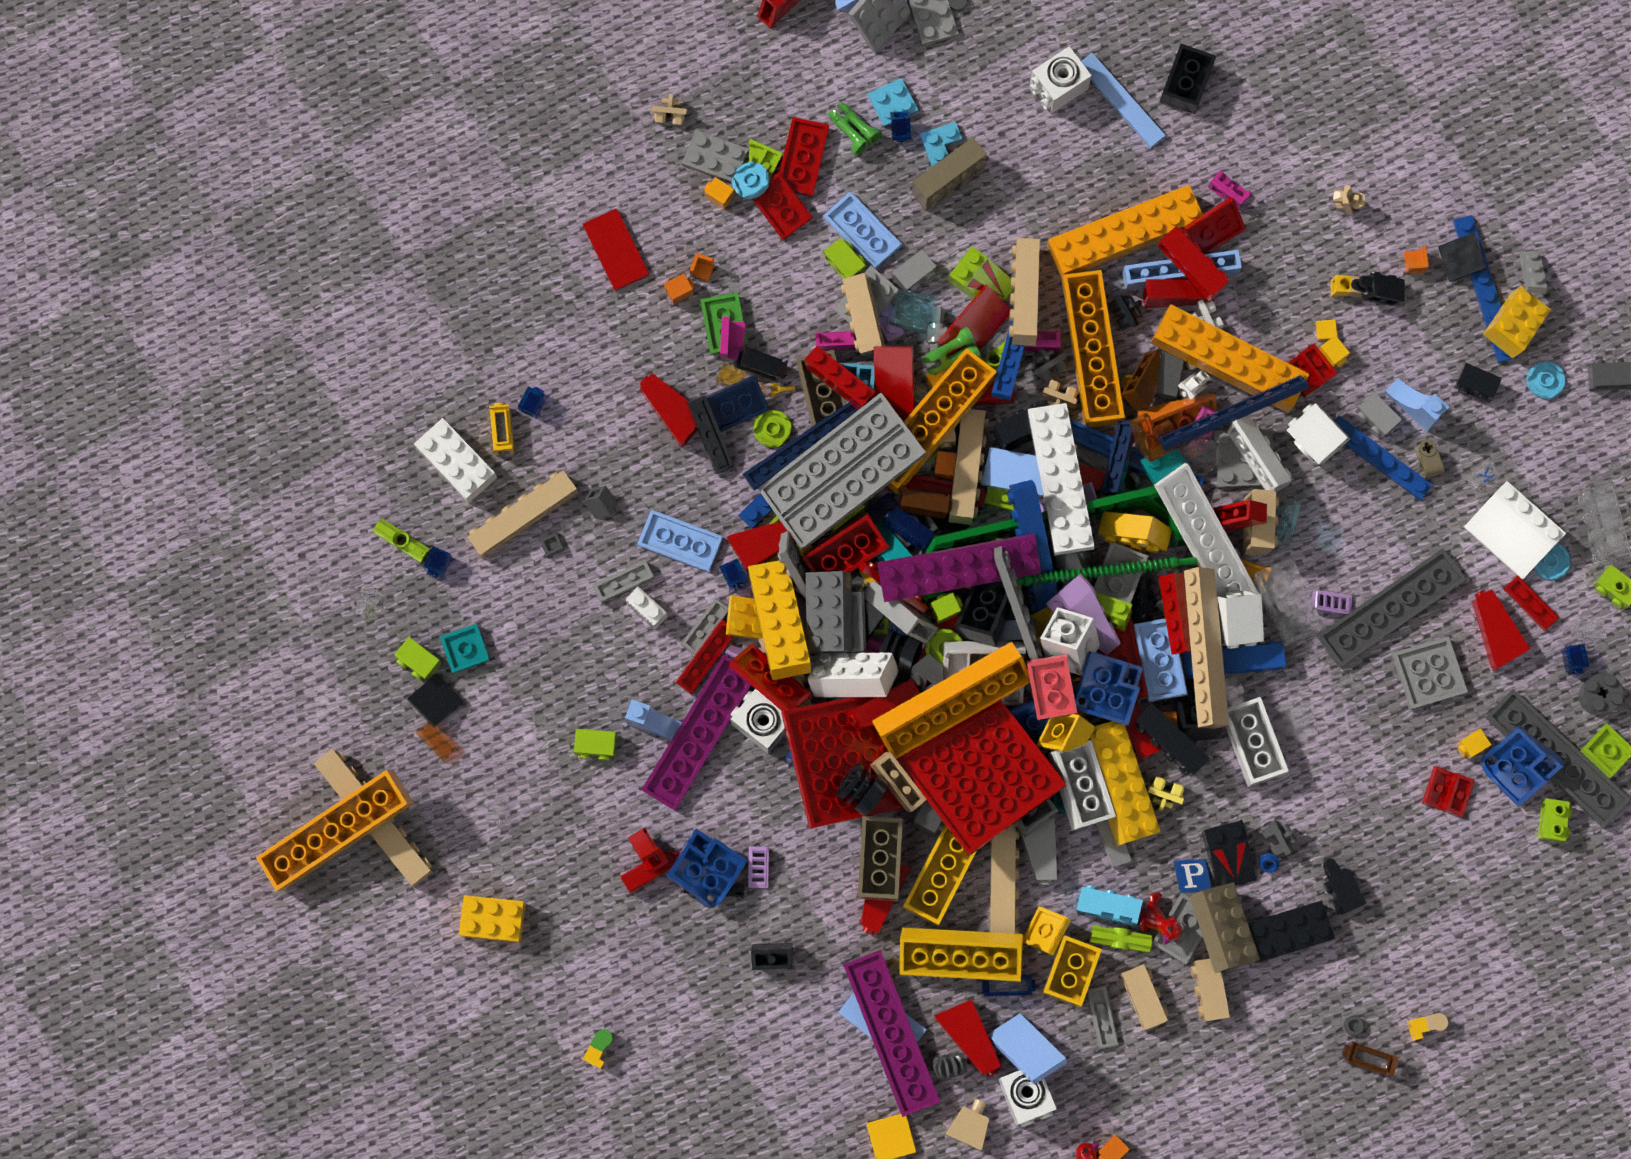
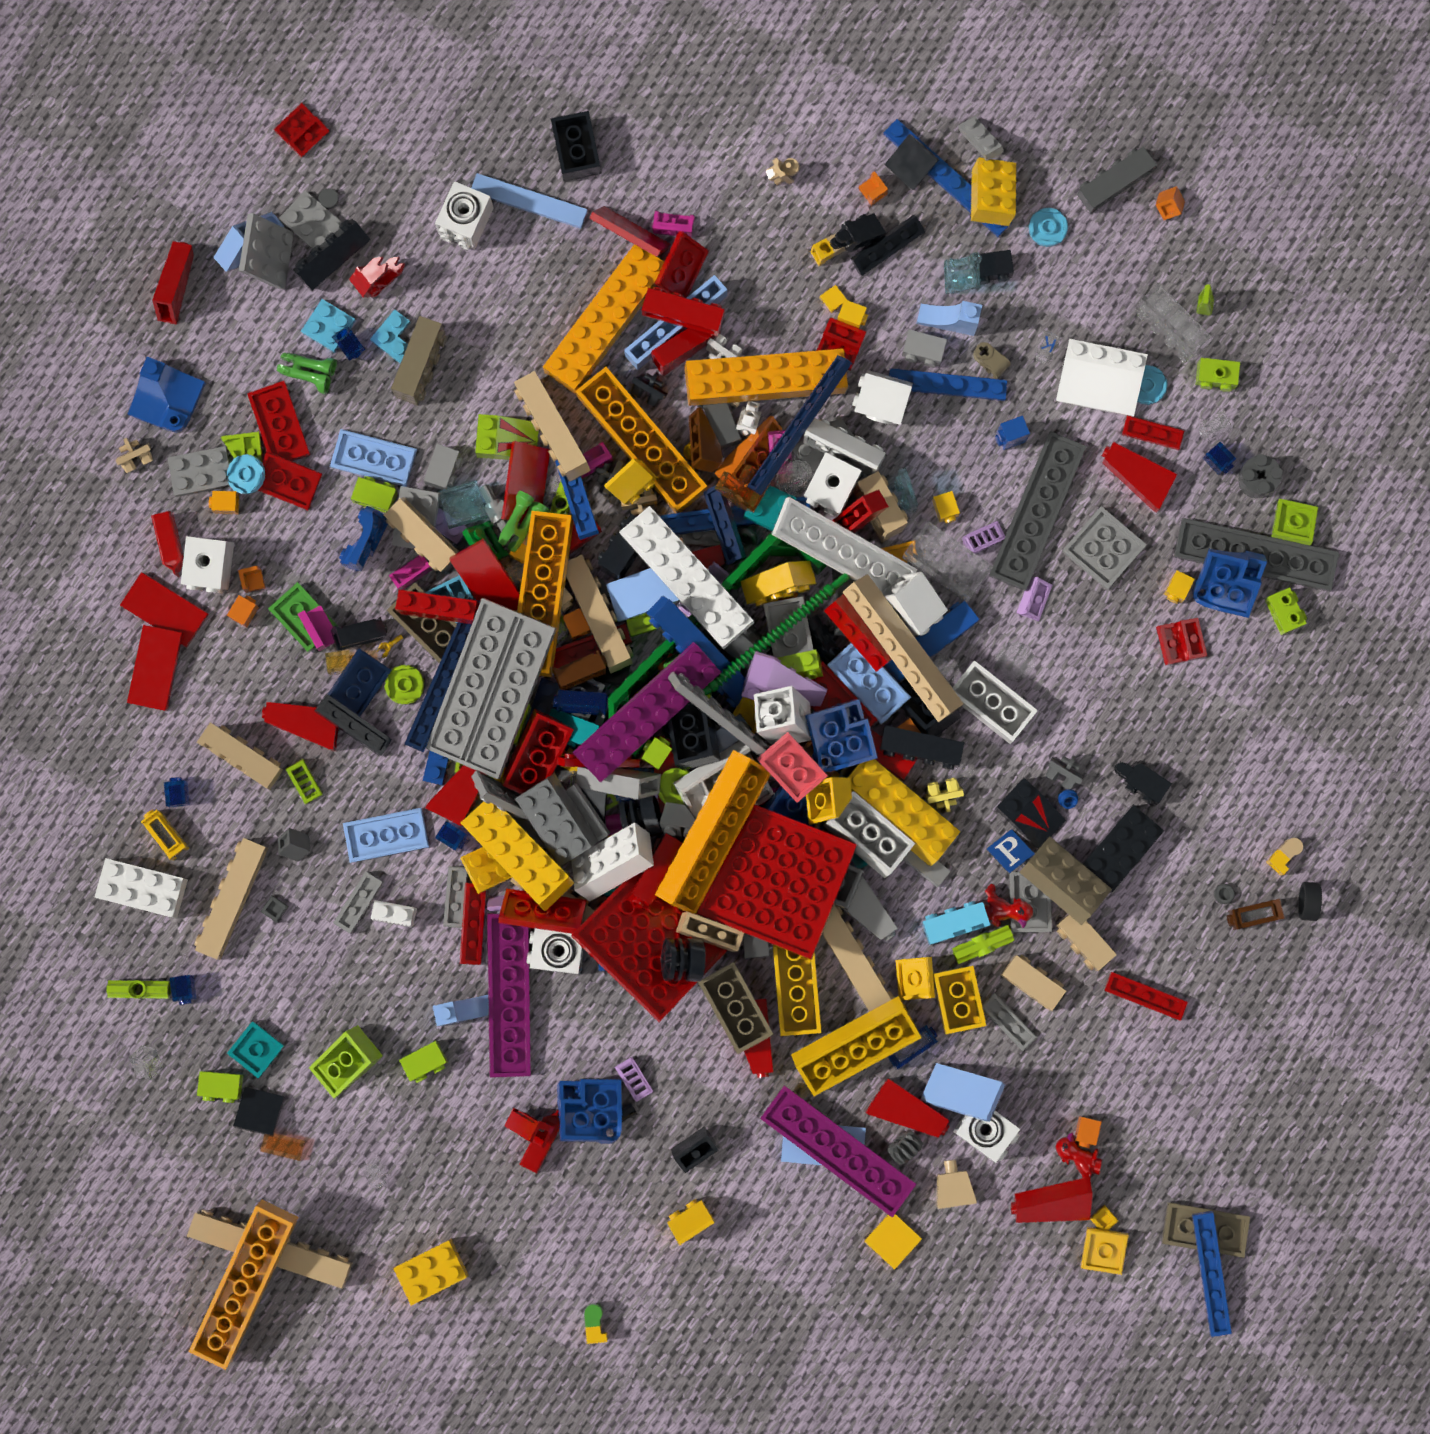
camera: 30 degrees left, 5 degrees up
(531, 703) = (345, 1061): none -> lime slope
(578, 291) = (155, 667): none -> red tile
(602, 402) = (240, 756): none -> tan wedge
(641, 472) = (301, 763): none -> lime slope
(654, 196) = (168, 541): none -> red piece
(673, 246) = (196, 572): none -> white brick
(725, 79) = (165, 395): none -> blue slope
(731, 1013) = (690, 1221): none -> yellow slope
(815, 294) = (373, 526): none -> blue slope
(907, 339) = (477, 532): none -> green plate
(931, 46) = (331, 254): none -> black brick
(956, 85) = (374, 277): none -> red piece
(1063, 375) = (631, 482): none -> yellow slope
(1189, 173) = (630, 231): none -> tile
(1221, 488) = (829, 497): none -> white brick
(1233, 1069) = (1145, 996): none -> red plate
(1315, 557) = (946, 507): none -> yellow brick
(1344, 679) = (1034, 598): none -> lavender slope
(1400, 313) = (887, 245): none -> black plate
(1409, 529) = (1012, 433): none -> blue brick
(1424, 1076) = (1310, 901): none -> black tyre
(1445, 378) = (963, 279): none -> clear light blue plate

